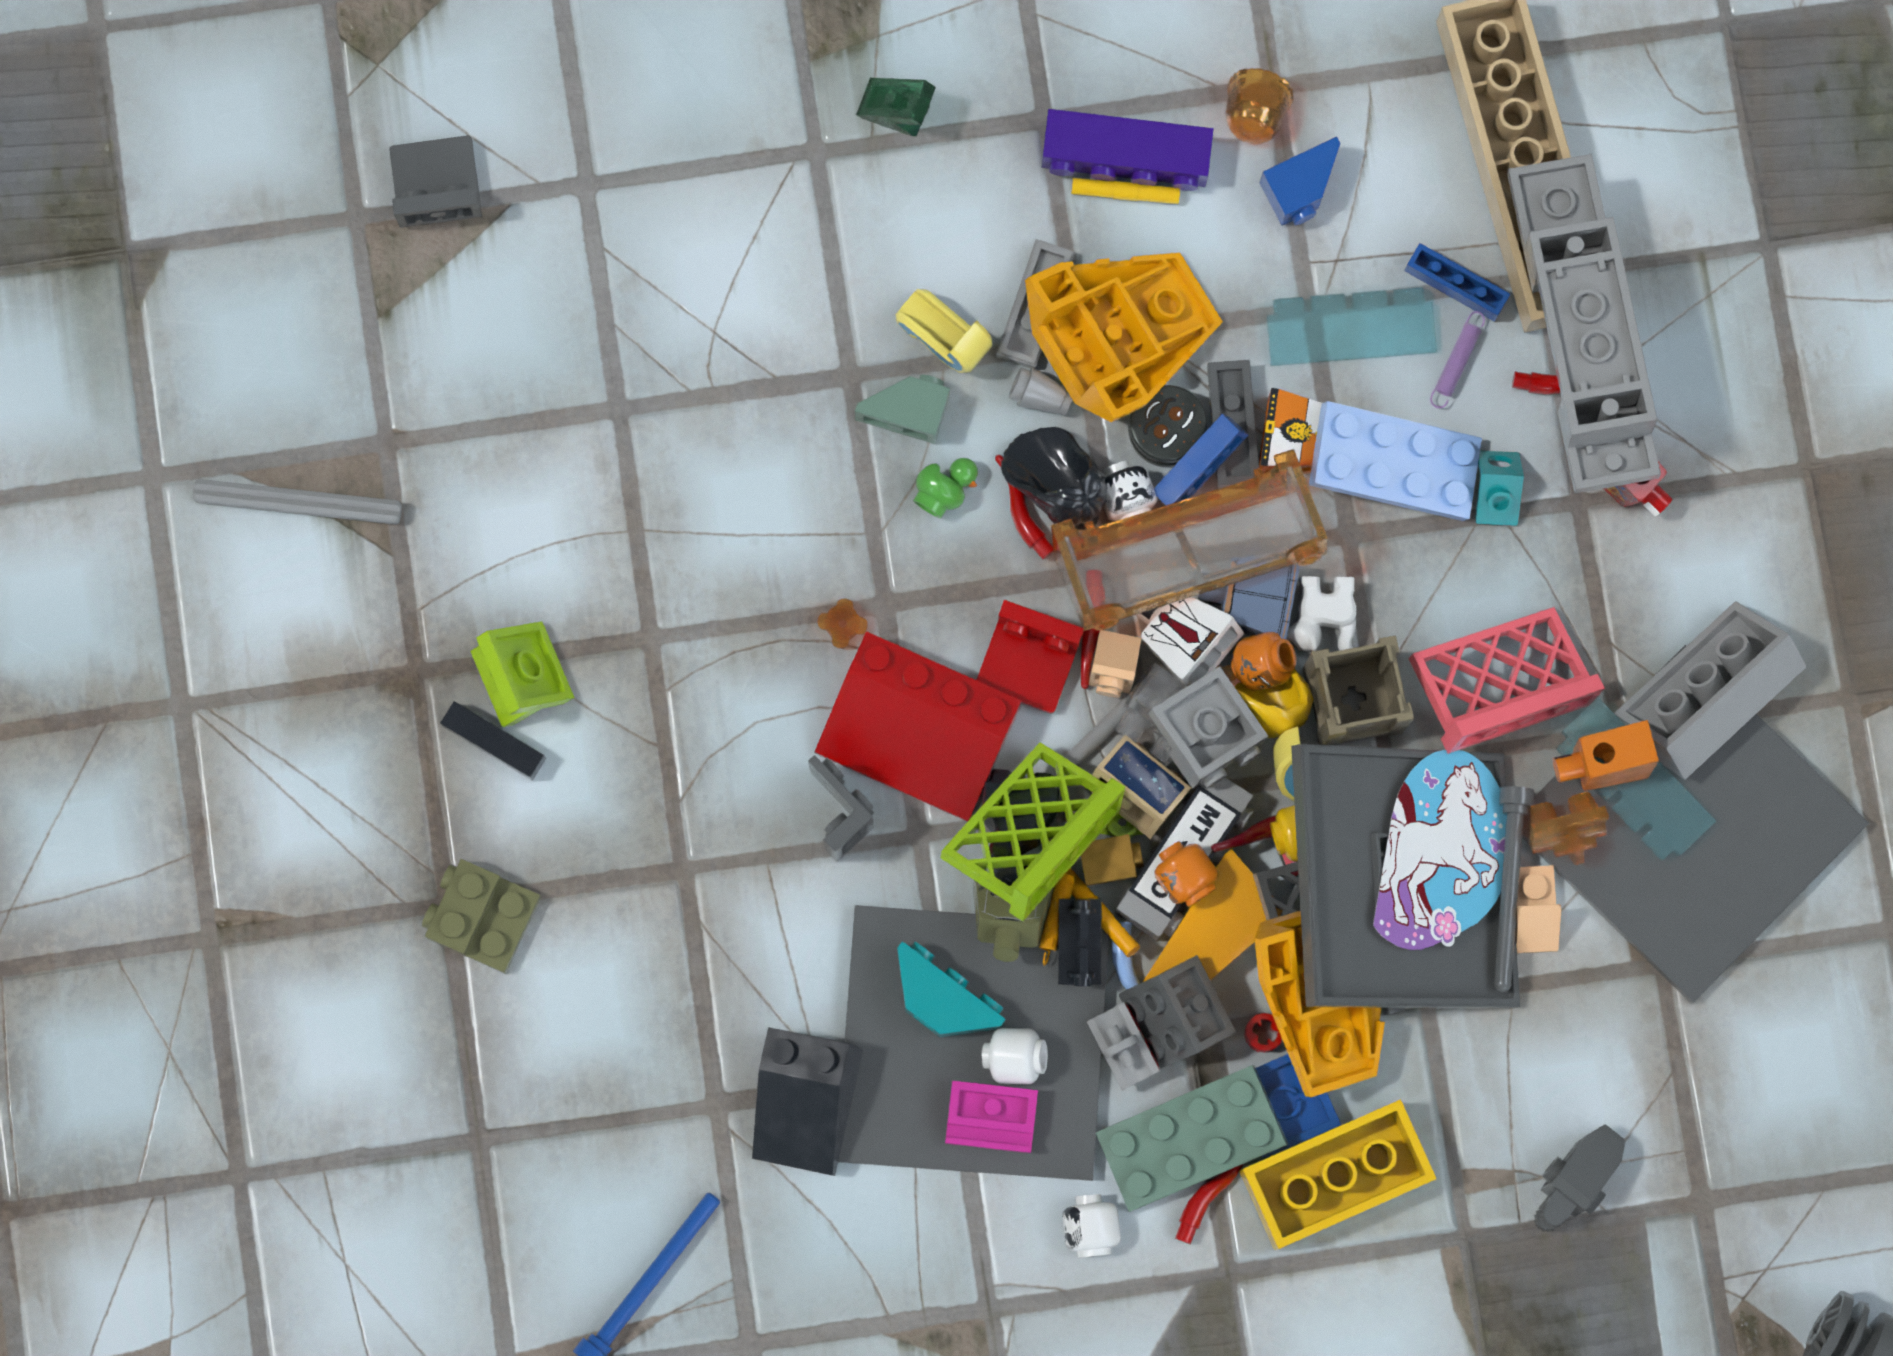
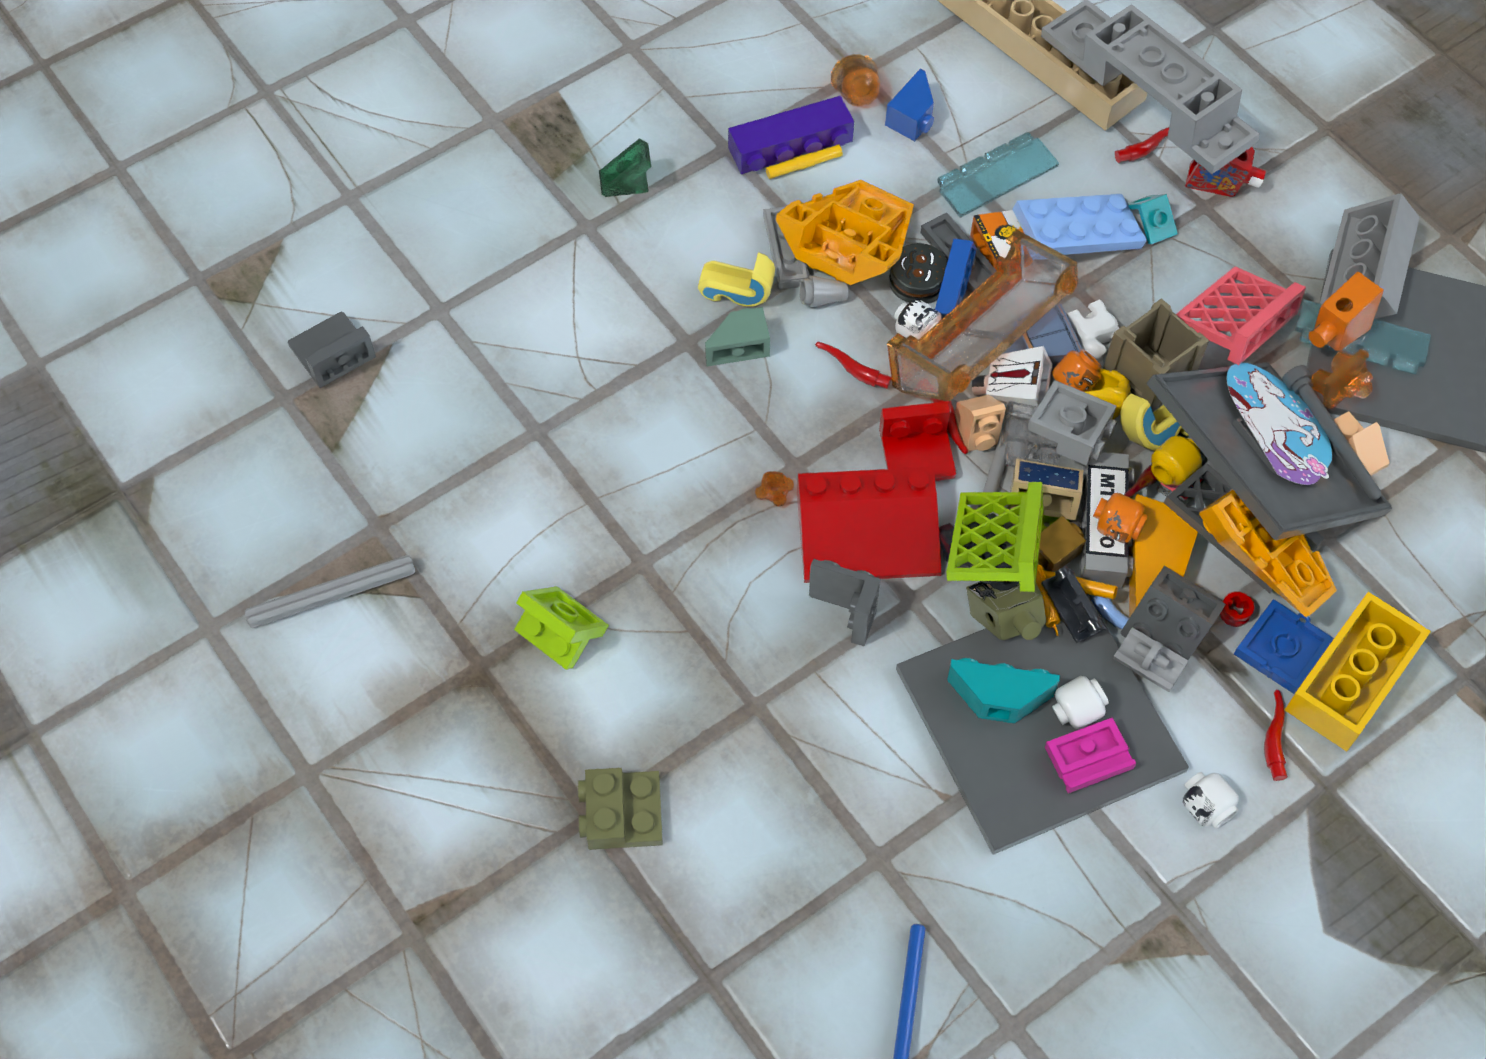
camera: 25 degrees left, 20 degrees down
(493, 740) = (564, 681): black piece -> none
(803, 1100) = (945, 815): black slope -> none
(943, 493) = (793, 374): bright green animal -> none
(1056, 475) = (865, 329): black hair -> none
(1191, 1138) = (1239, 699): sand green plate -> none
(1457, 282) = (1045, 120): blue piece -> none
(1457, 359) = (1075, 161): lavender piece -> none

